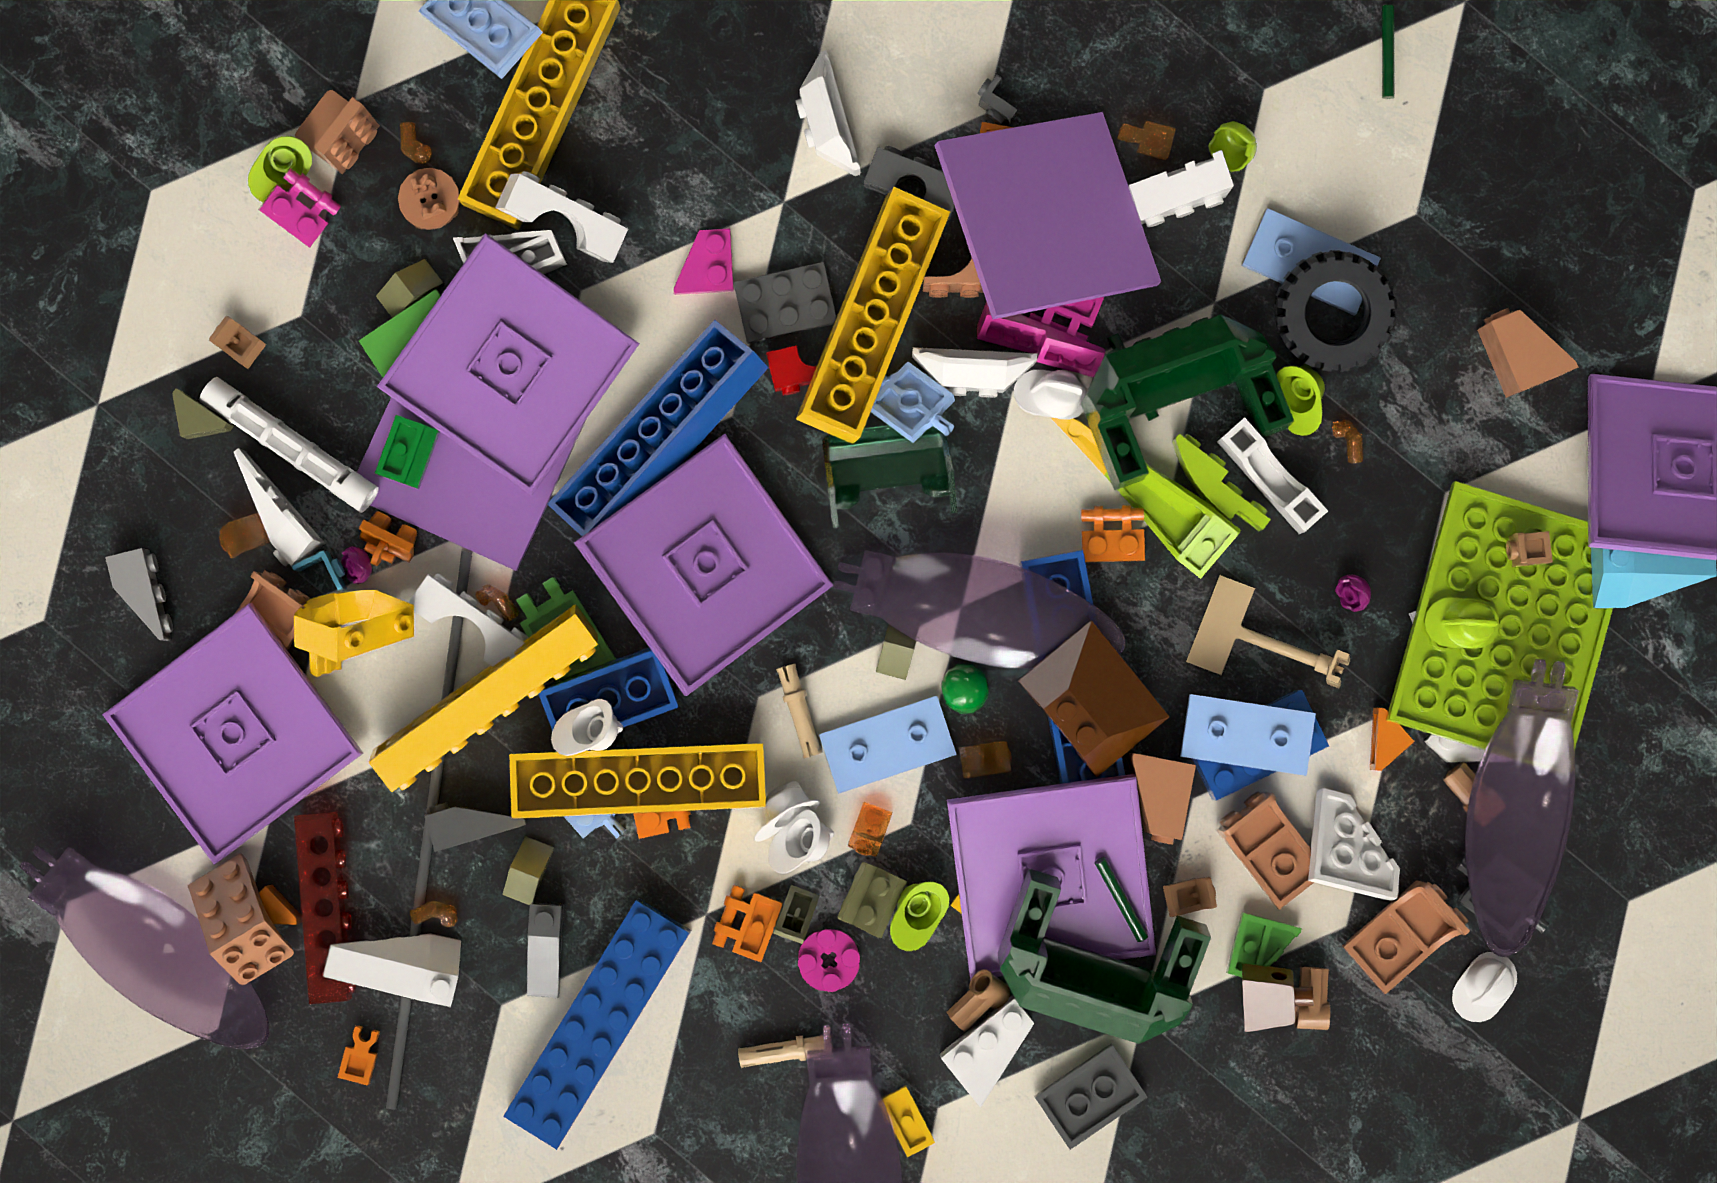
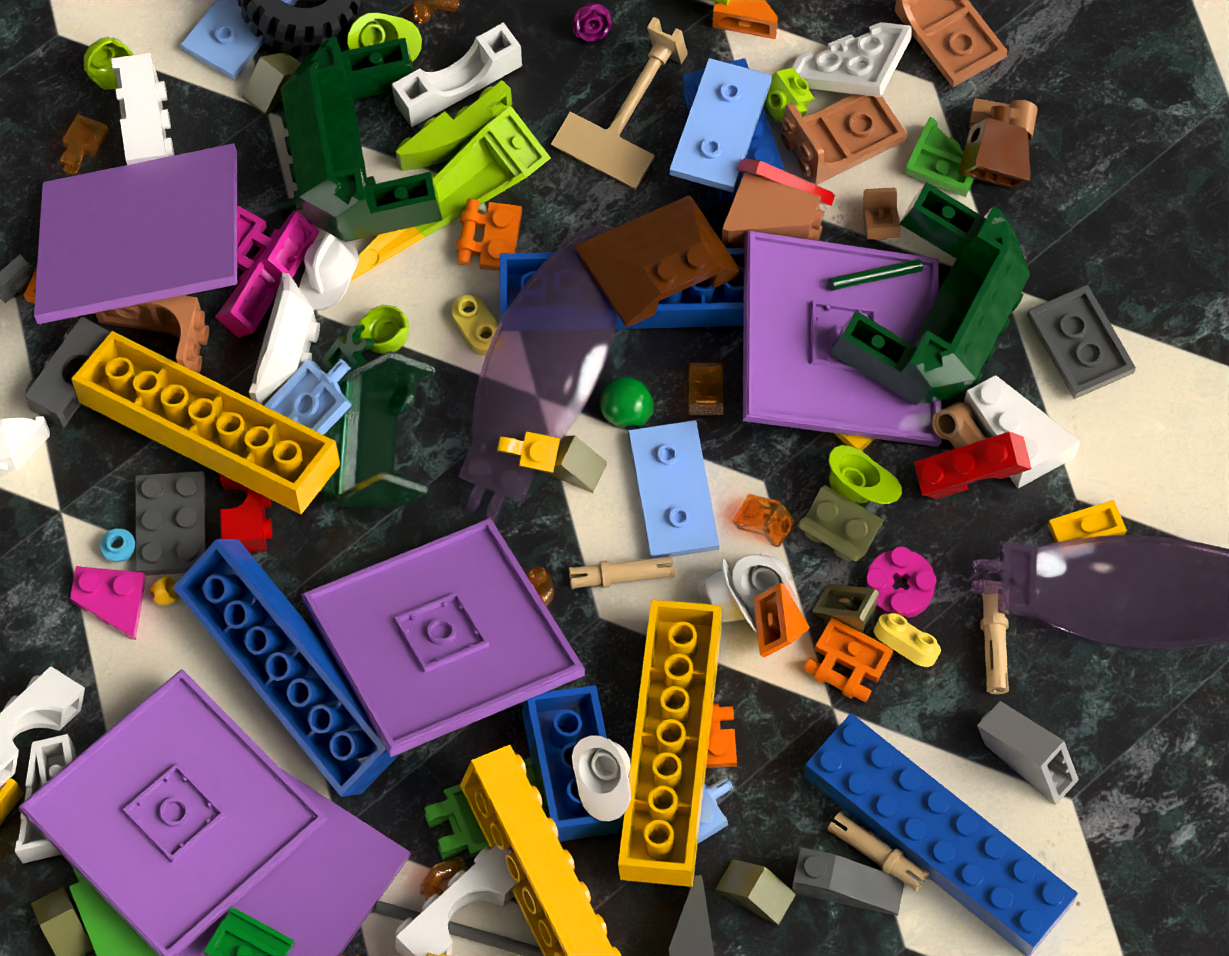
camera: 80 degrees left, 20 degrees down
(576, 972) = (887, 858): none -> tan pin
(685, 1090) = (1029, 751): none -> light grey slope
(717, 306) = (164, 591): none -> yellow hinge
(760, 269) = (118, 554): none -> medium azure plate
(766, 857) = (777, 619): none -> orange slope
(773, 972) = (907, 640): none -> light yellow plate
(775, 642) = (542, 583): none -> clear orange arm
(890, 617) = (536, 451): none -> yellow plate
(942, 1028) = (988, 458): none -> red arch
(968, 428) = (349, 349): none -> dark green plate
(999, 456) = (387, 326): none -> lime hair
(1022, 539) = (474, 323): none -> light yellow plate
(1200, 804) = (769, 172): none -> tile
(1244, 304) = (267, 79): none -> olive slope
(1299, 792) = (784, 89): none -> lime brick

